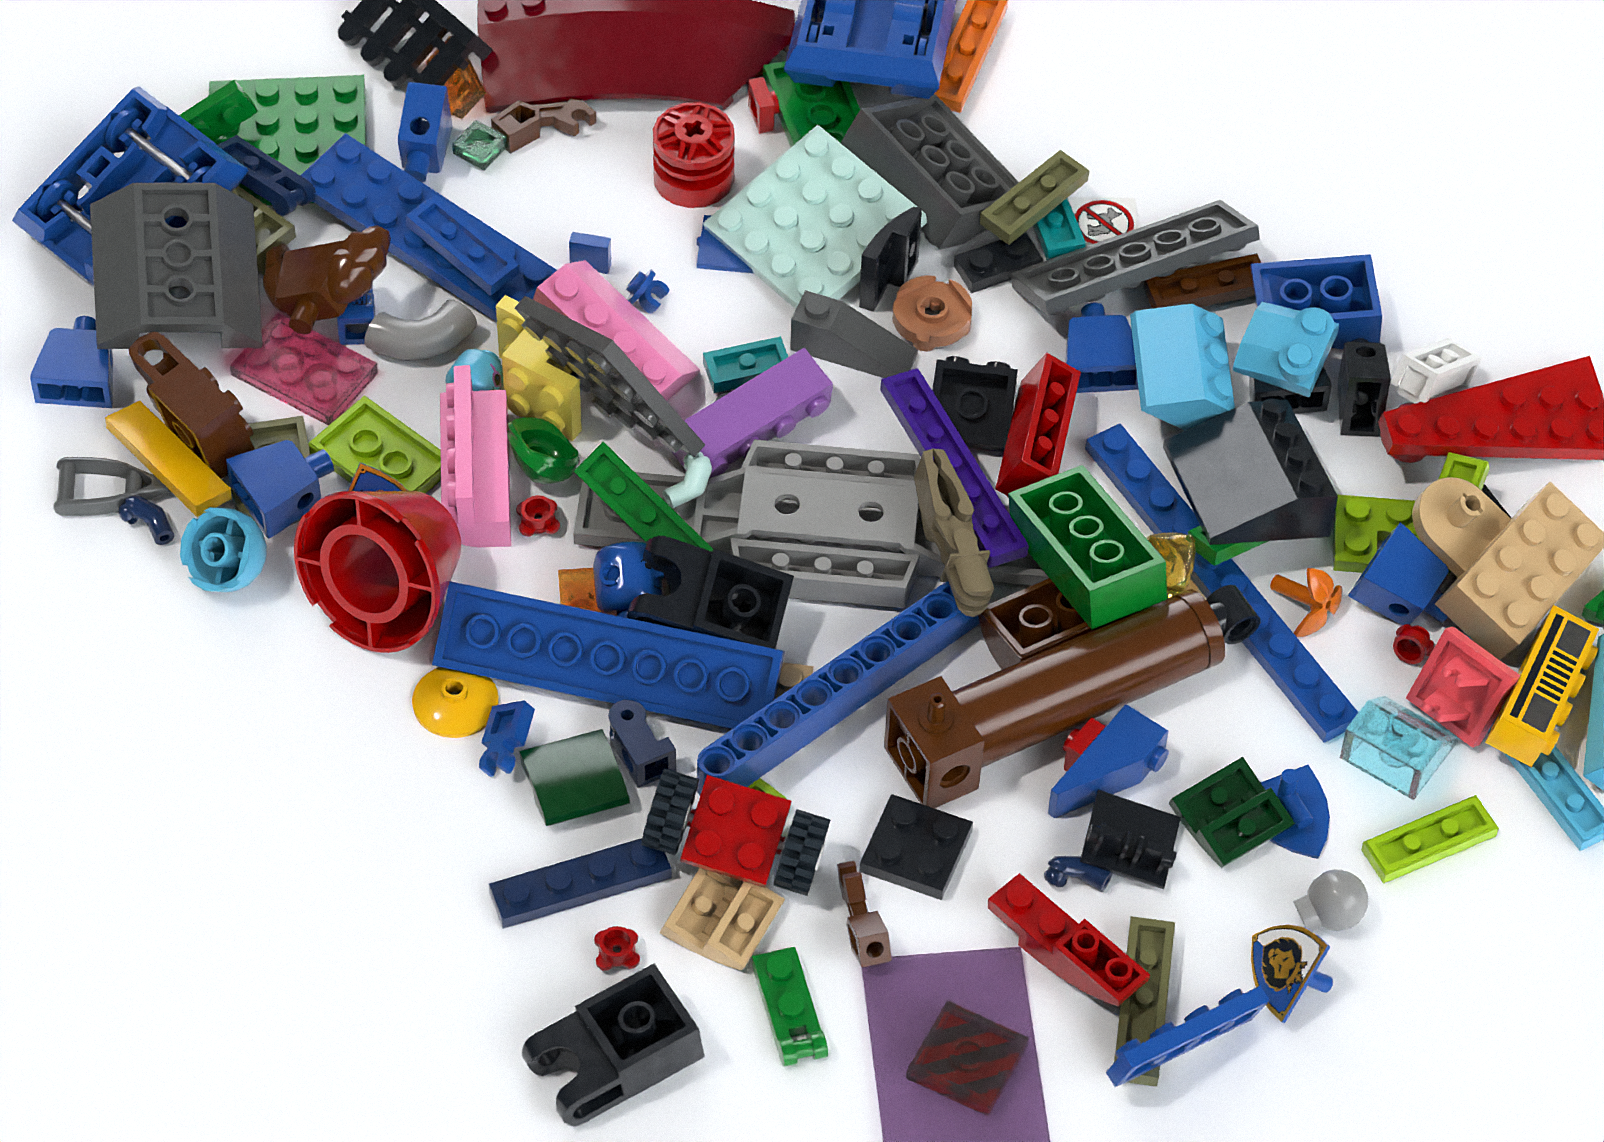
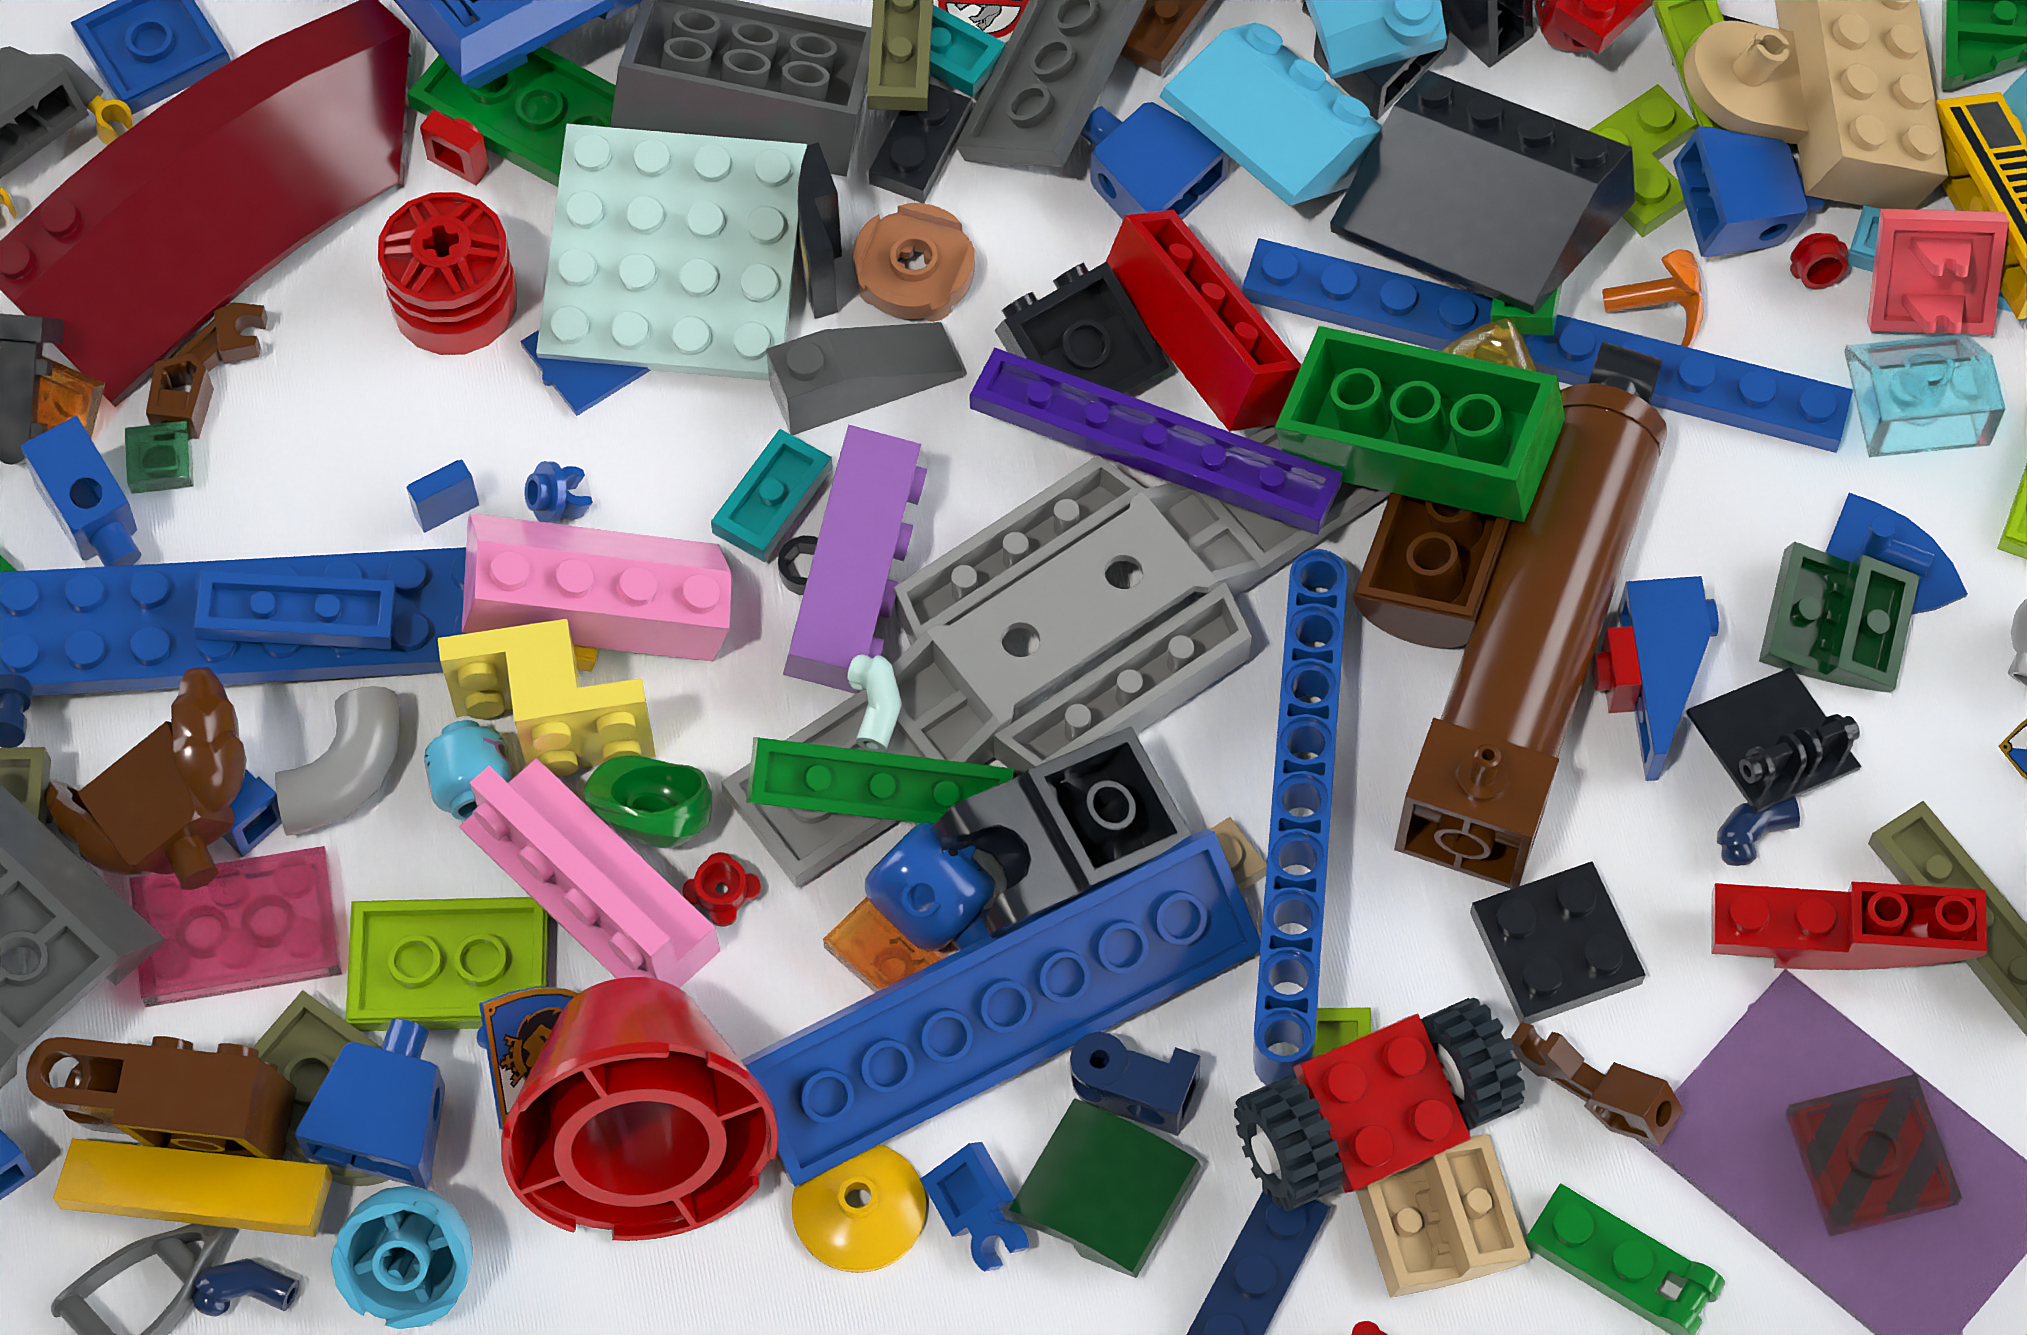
camera: 40 degrees left, 10 degrees up
(609, 376) = (689, 647): dark grey plate -> none
(948, 524) = (1230, 513): dark tan arm -> none

